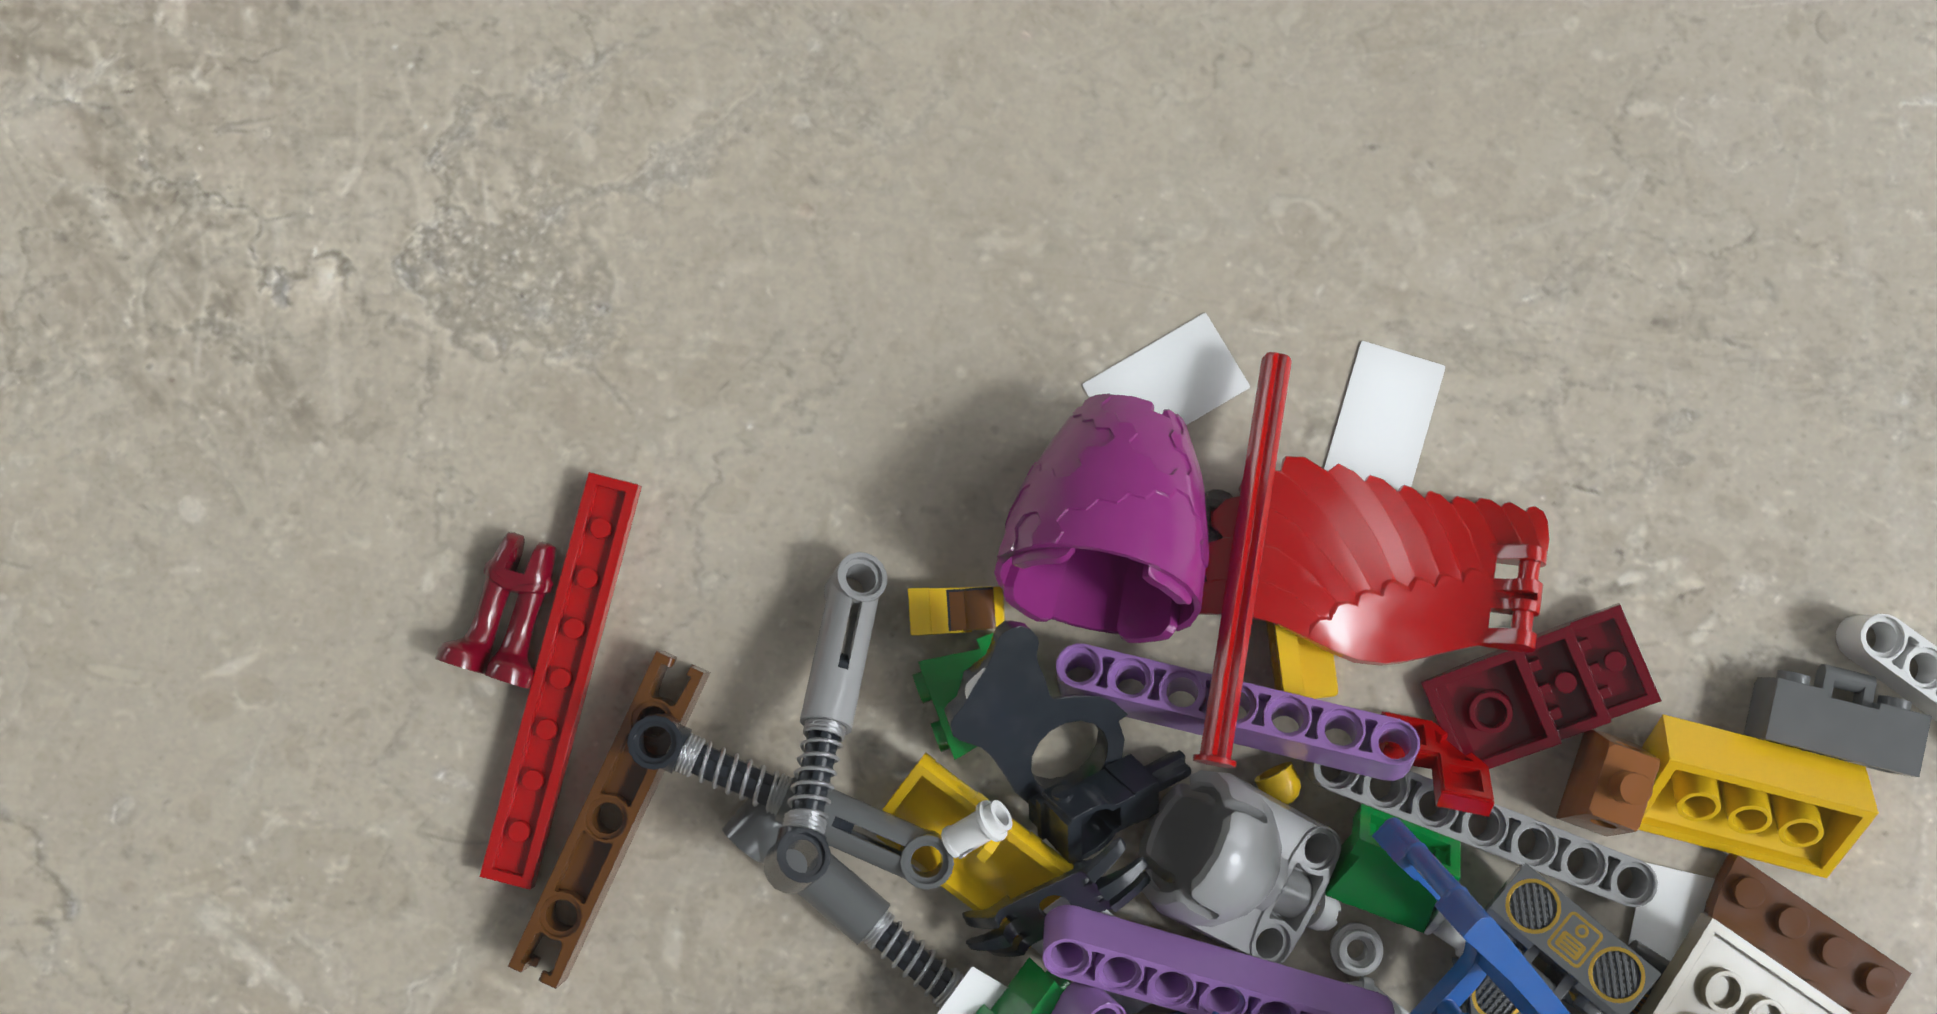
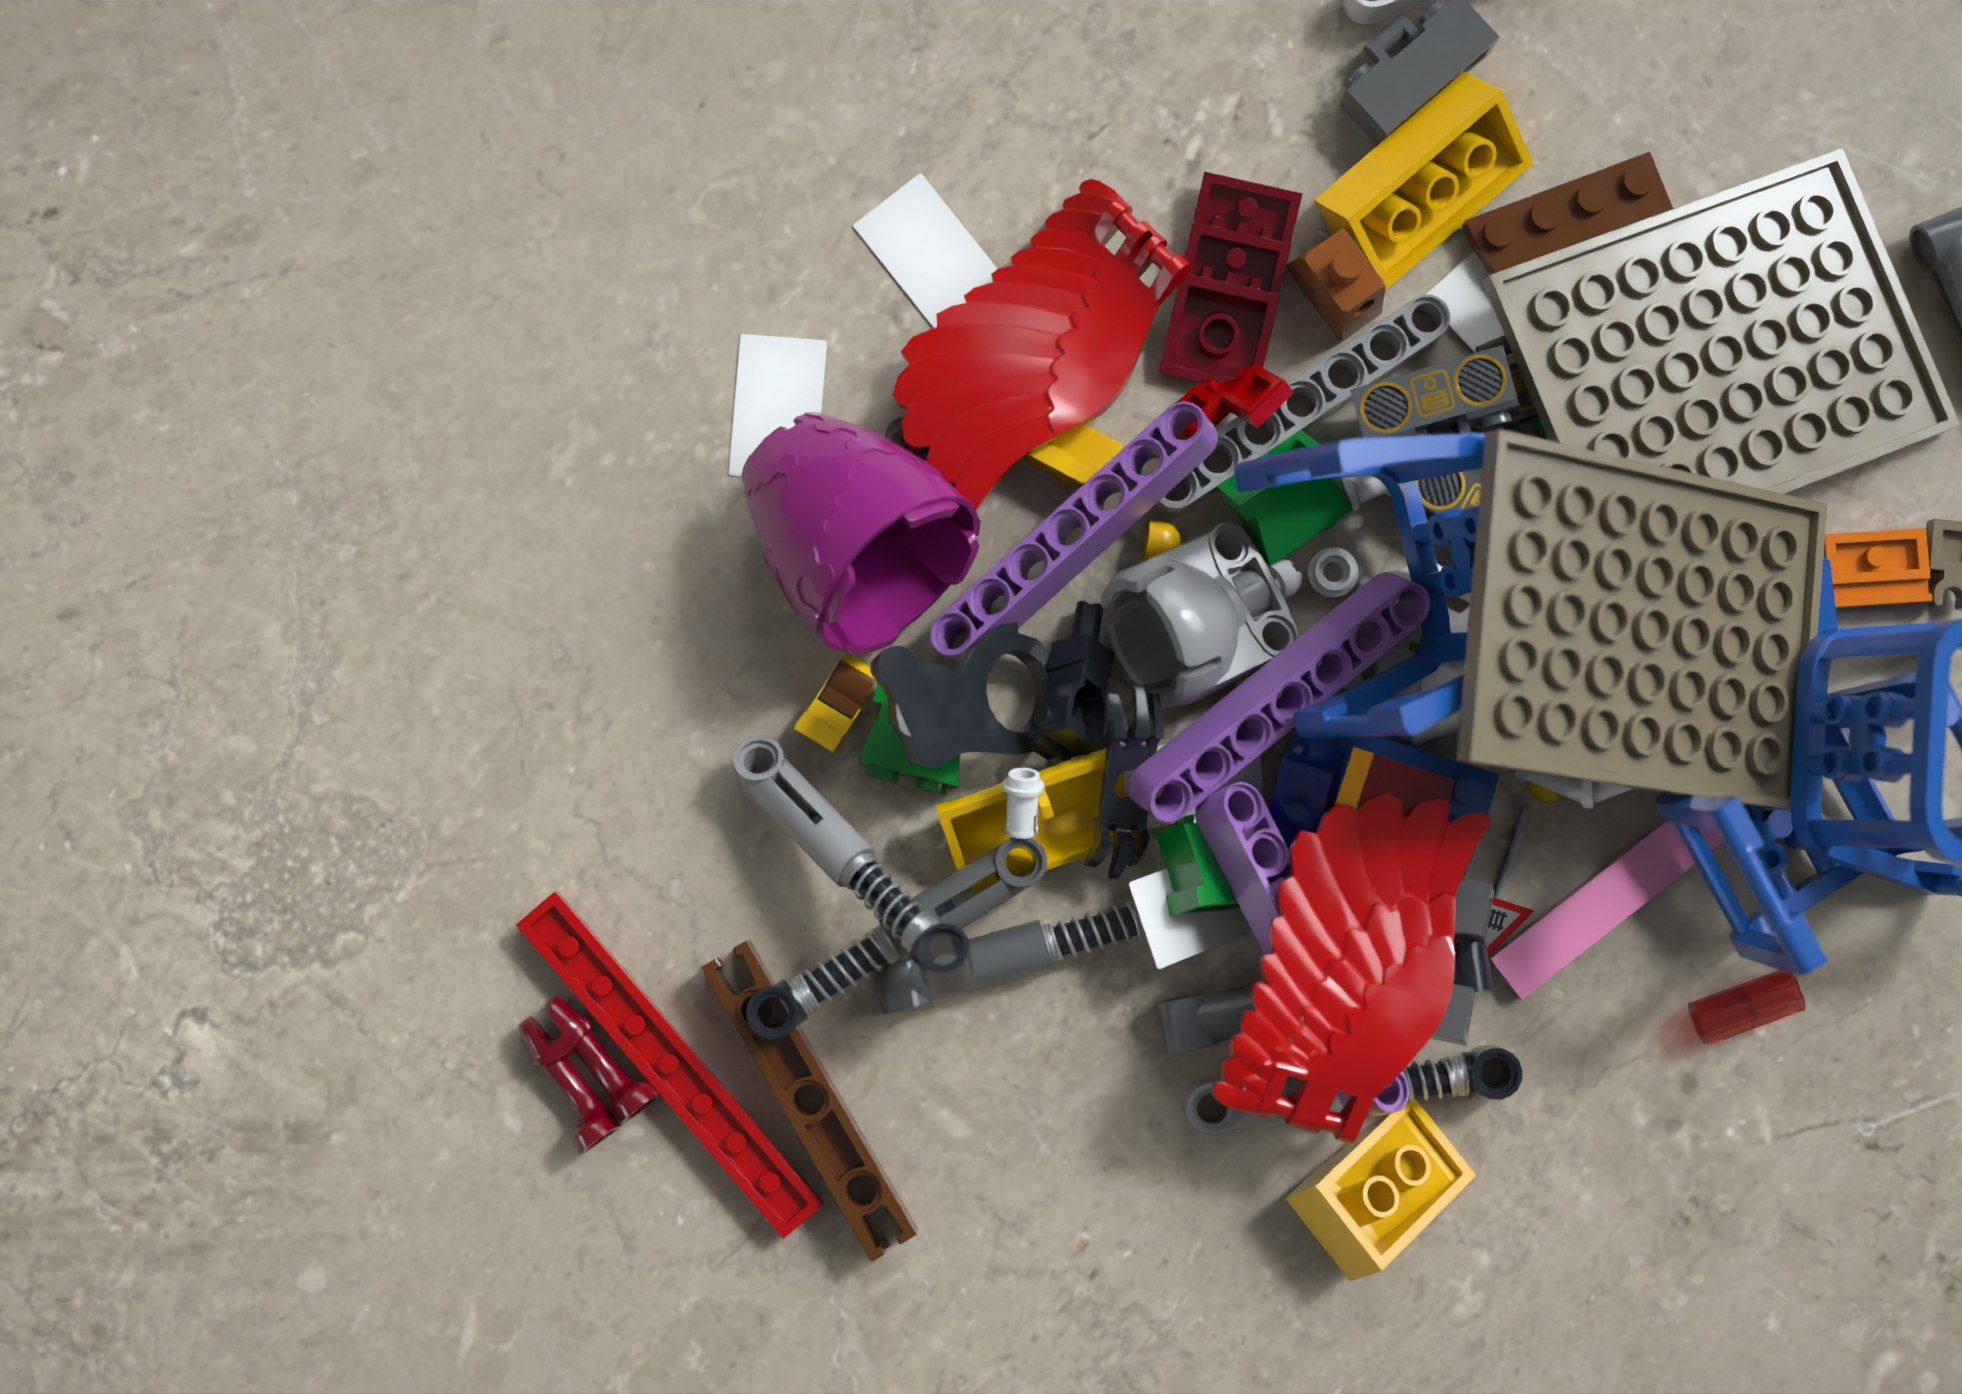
camera: 50 degrees left, 0 degrees up
(1245, 563) = (960, 442): red axle -> none

